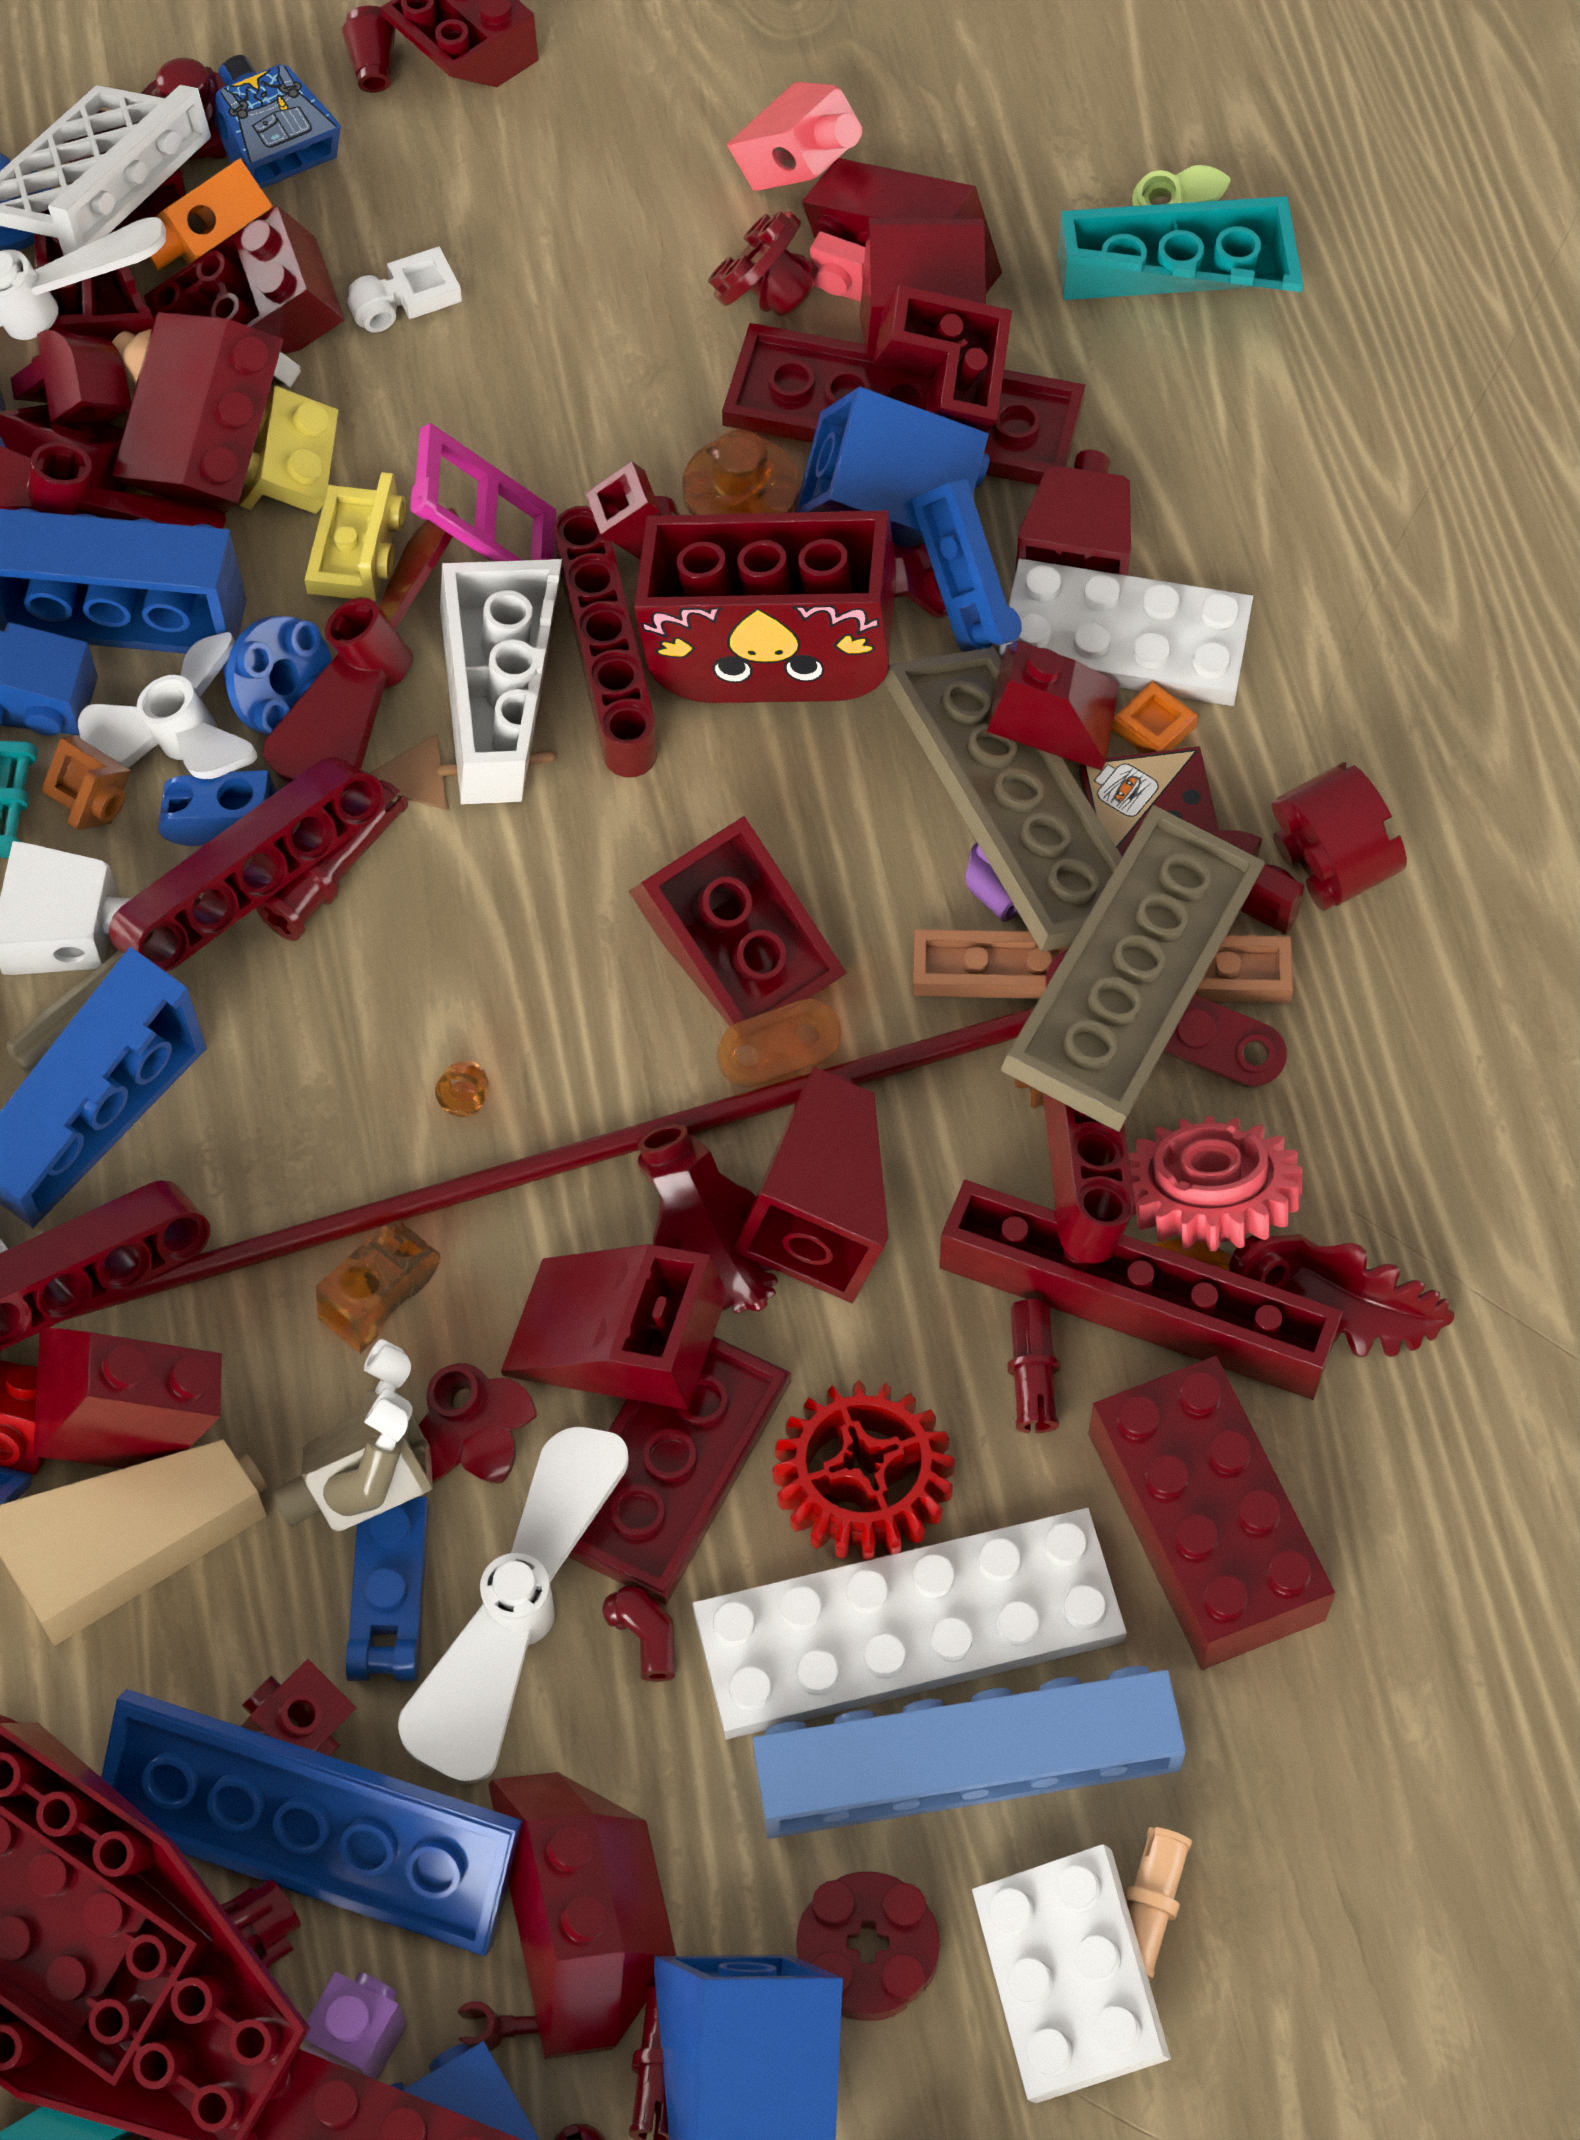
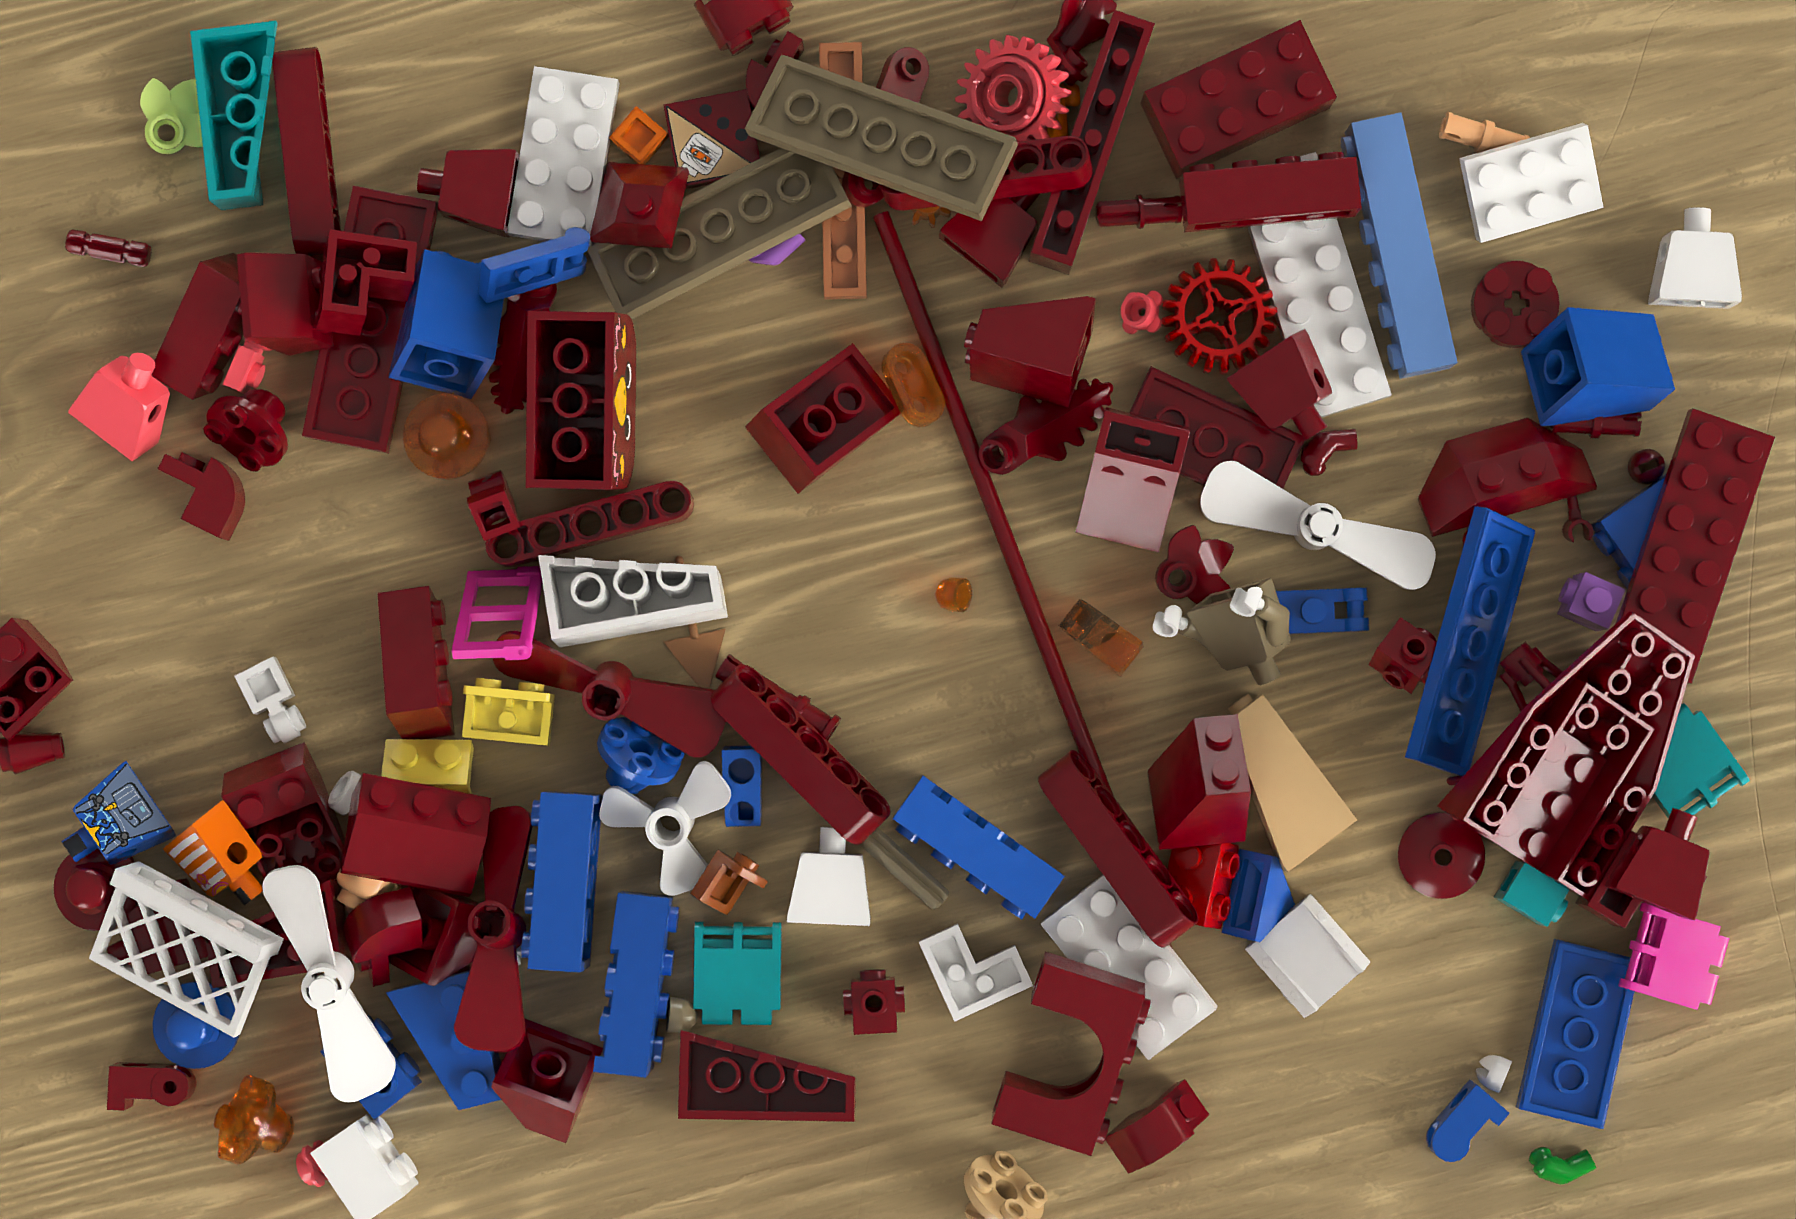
camera: 90 degrees left, 25 degrees up
(391, 407) = (415, 663): none -> dark red wedge
(677, 235) = (217, 497): none -> dark red brick
(745, 1552) = (1286, 385): none -> dark red torso
(876, 1359) = (1131, 310): none -> coral plate
(996, 1145) = (995, 241): none -> dark red torso
(1009, 139) = (108, 248): none -> dark red axle
(1051, 1530) = (1270, 193): none -> dark red brick
(1142, 339) = (306, 148): none -> dark red beam

